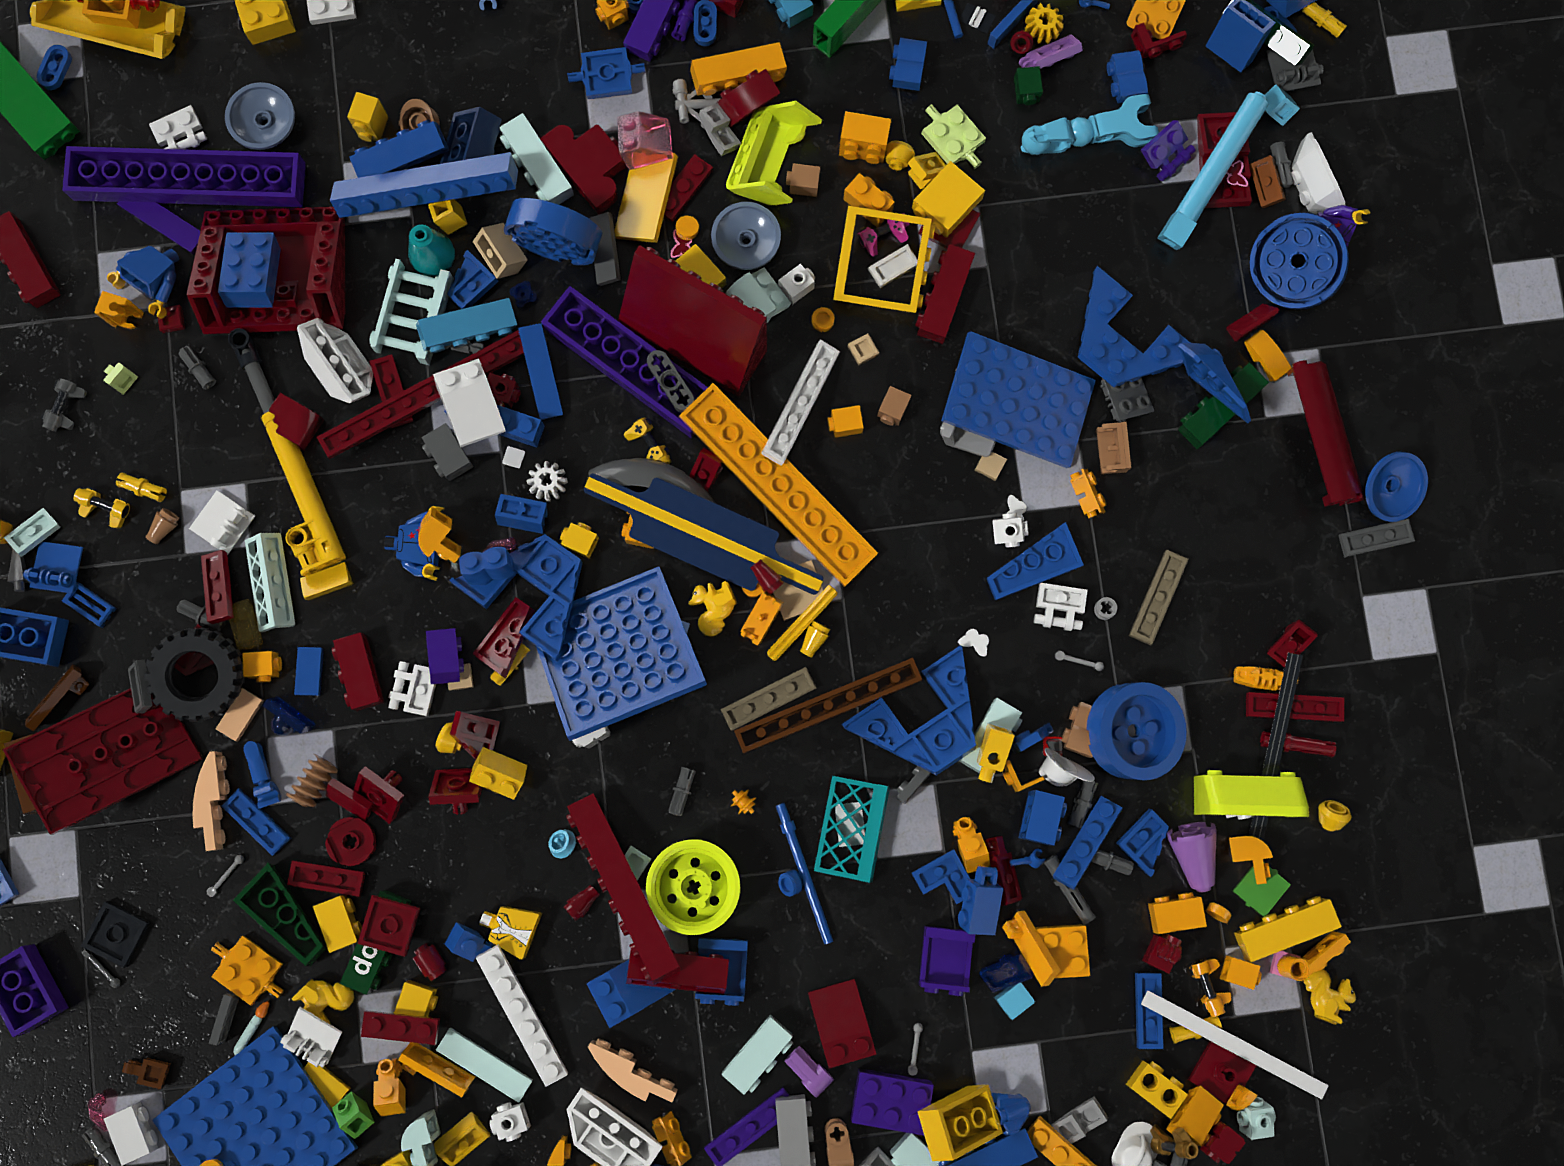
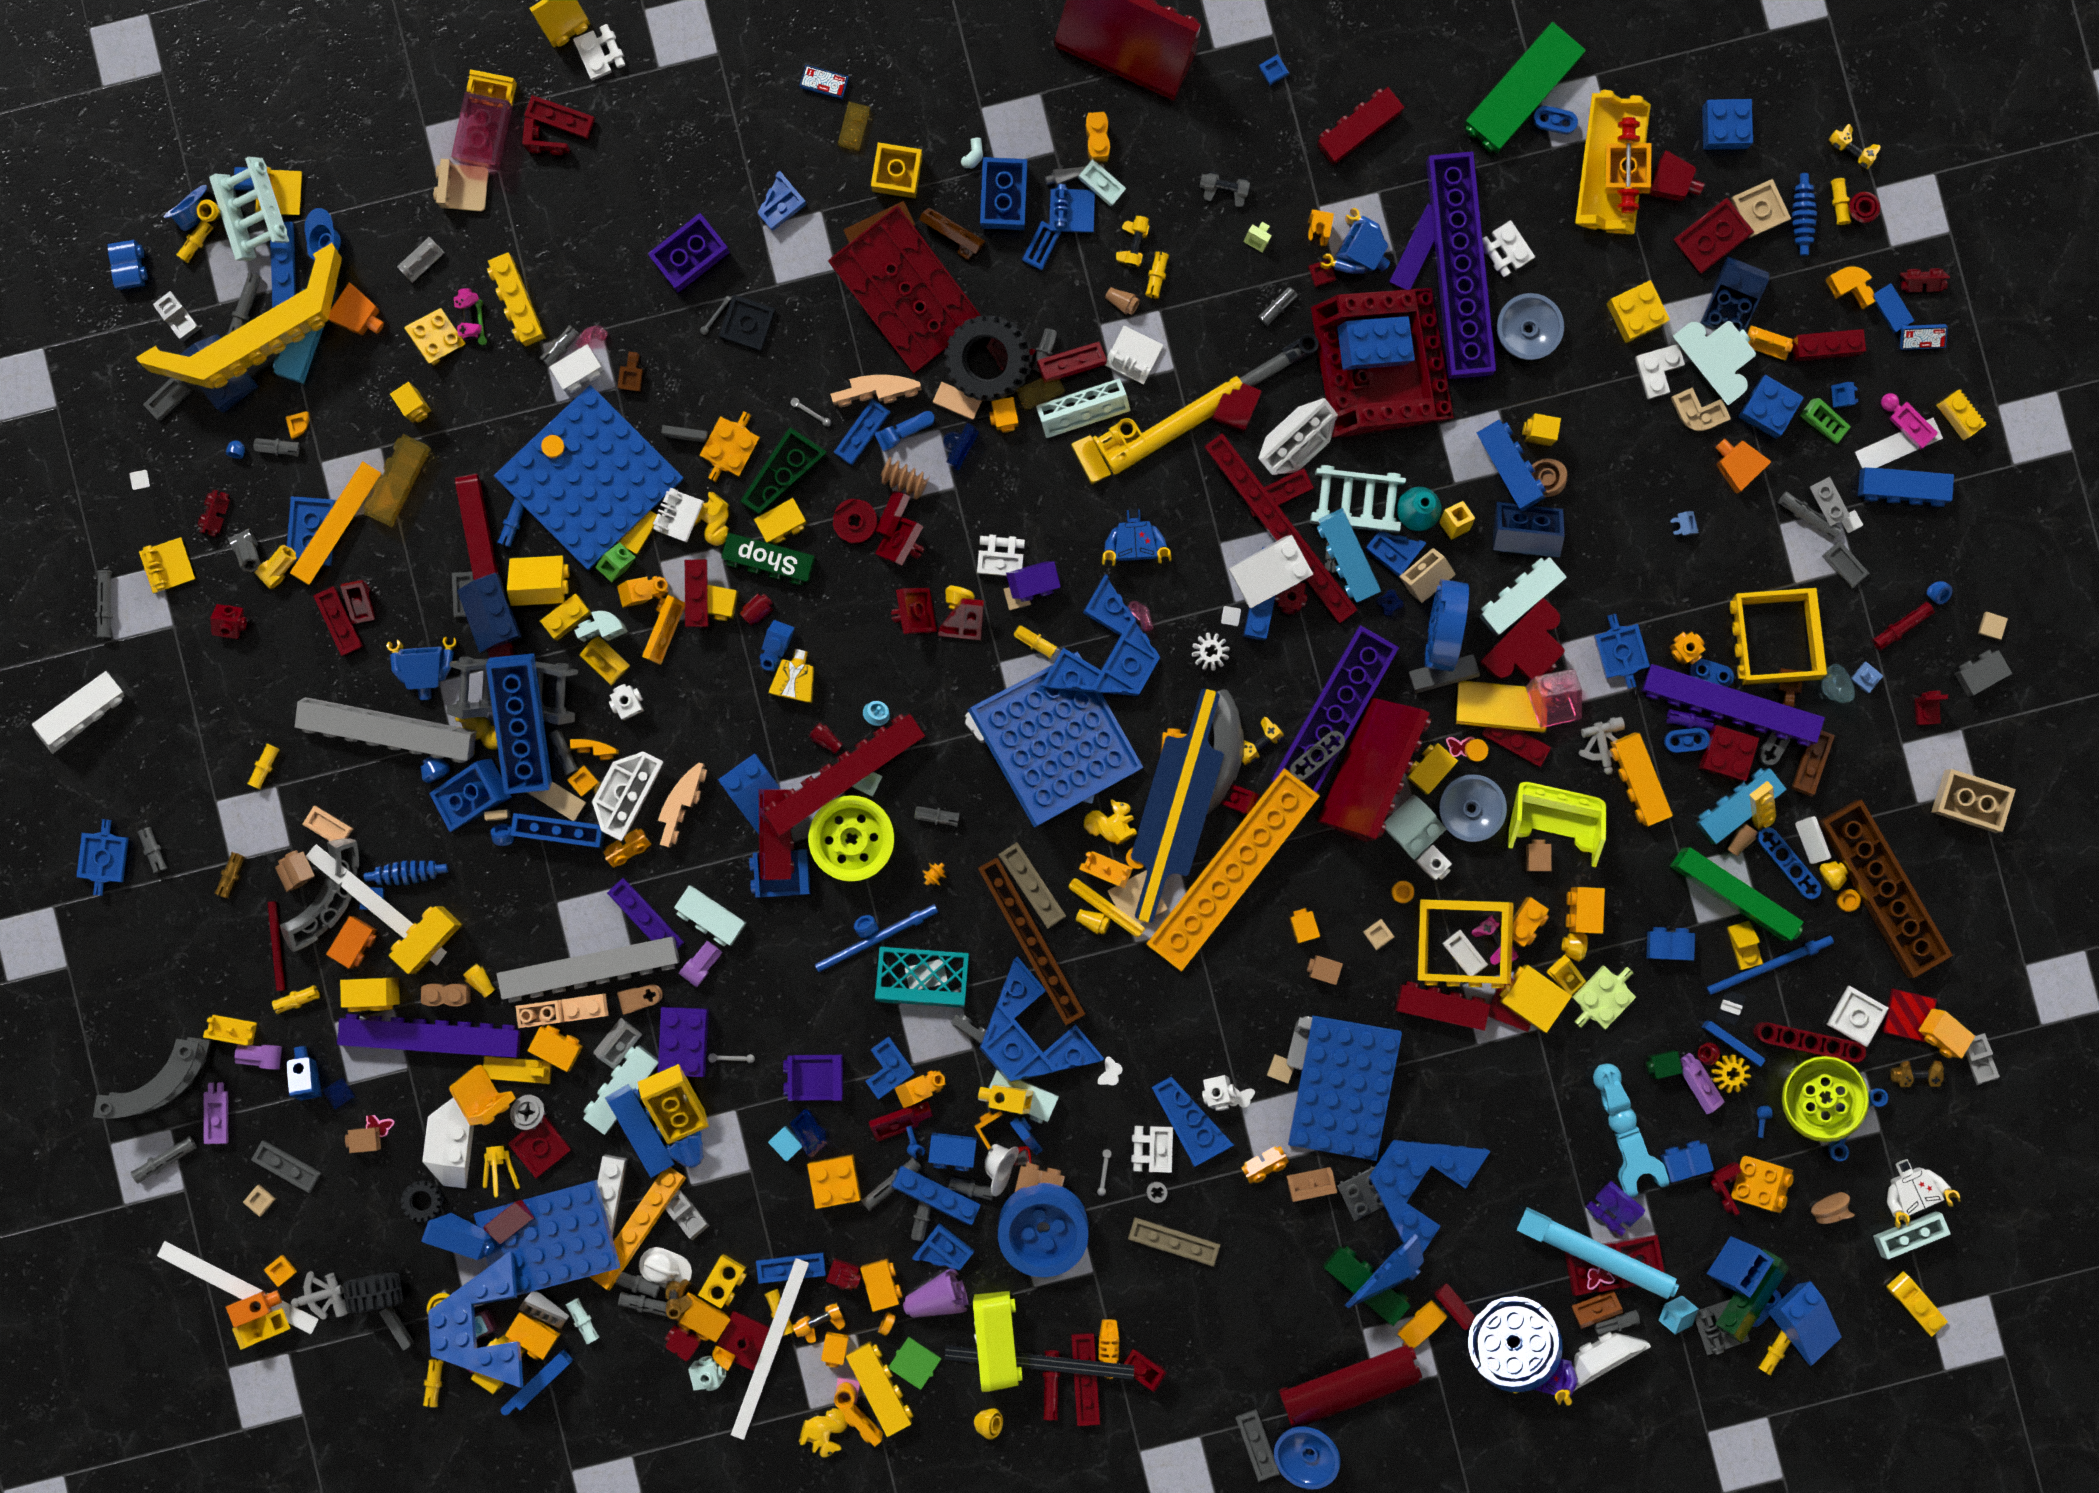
camera: 85 degrees right, 5 degrees up
(141, 698) = (970, 309): dark grey tile -> none
(260, 1013) = (693, 464): light aqua piece -> none
(309, 671) = (1005, 457): blue tile -> none
(326, 878) = (819, 504): dark red plate -> none
(357, 672) = (1009, 503): dark red brick -> none
(389, 925) = (784, 569): dark red tile -> none
(424, 185) = (1478, 496): blue brick -> none
(432, 536) = (1140, 557): light orange brick -> none
(447, 452) = (1225, 554): dark grey brick -> none
(482, 567) = (1123, 613): blue brick -> none
(484, 1065) = (671, 671): light aqua tile -> none
(498, 773) = (932, 646): yellow brick -> none
(504, 639) = (1056, 633): dark red wing -> none
(521, 513) = (1176, 632): blue hinge -> none
(522, 1015) = (719, 699): white plate -> none
(540, 371) = (1314, 630): blue tile -> none
(579, 539) = (1159, 689): yellow brick -> none
(717, 128) = (1580, 765): light grey slope -> none
(748, 96) = (1611, 792): dark red brick -> none
(767, 577) = (1143, 870): dark red cone -> none
(800, 402) = (1315, 880): white tile -> none
(841, 1023) = (746, 988): dark red slope -> none
(981, 902) = (868, 1102): blue brick -> none
(1032, 947) = (834, 1153): light orange hinge -> none
(1252, 848) = (947, 1352): light orange brick -> none

